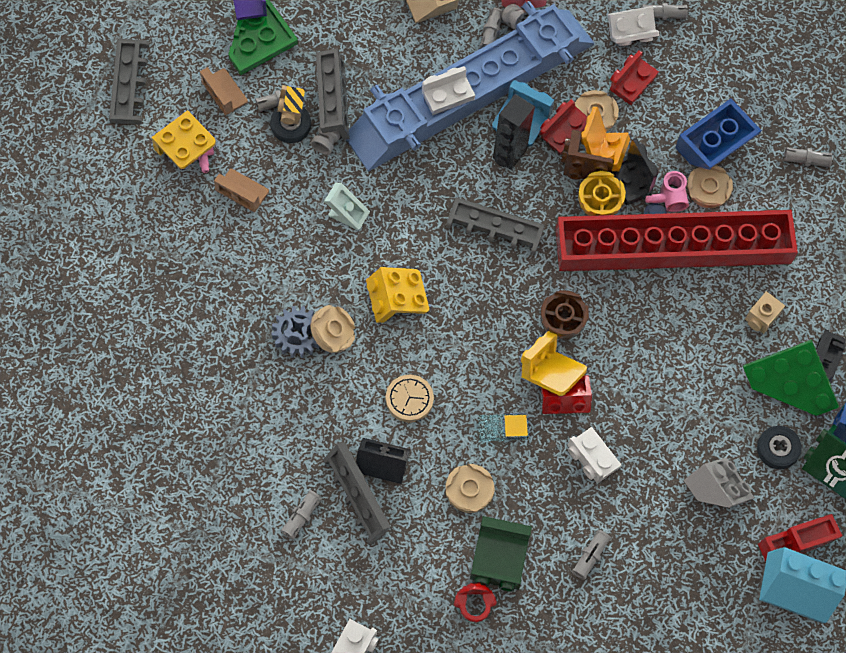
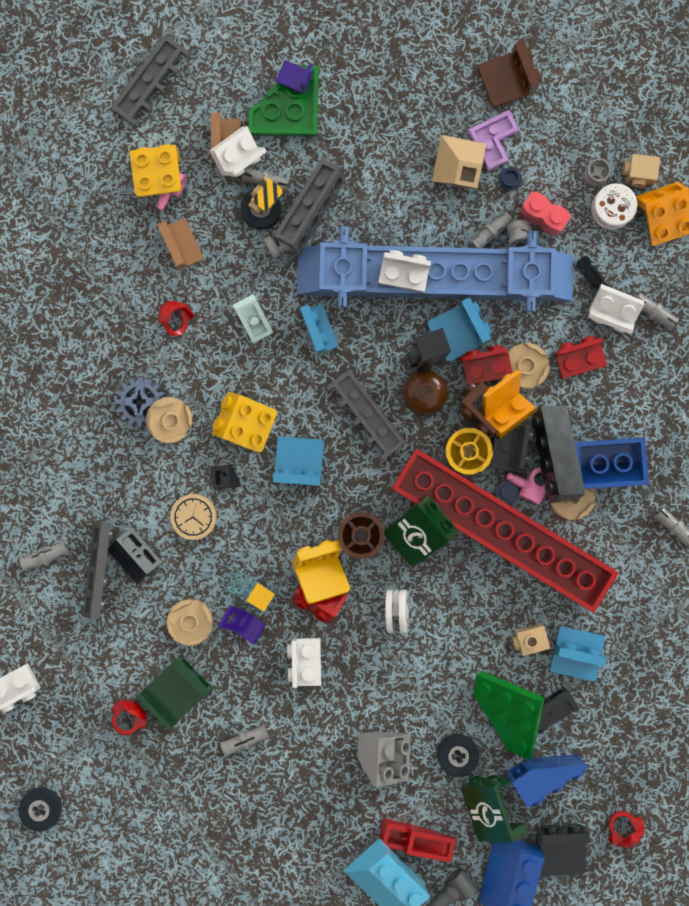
camera: 40 degrees right, 20 degrees up
(242, 89) = (236, 153): none -> white bracket
(285, 239) = (166, 311): none -> red piece
(405, 183) = (319, 328): none -> dark azure bracket
(412, 349) = (224, 477): none -> black slope
(467, 296) = (298, 461): none -> dark azure bracket
(518, 457) = (243, 624): none -> dark purple bracket
(530, 179) = (425, 393): none -> reddish brown cylinder
(592, 13) = (591, 272): none -> black axle
(610, 279) = (420, 531): none -> dark green panel
(639, 357) = (397, 610): none -> white head
(675, 153) = (558, 454): none -> black brick
(810, 301) = (578, 653): none -> dark azure bracket

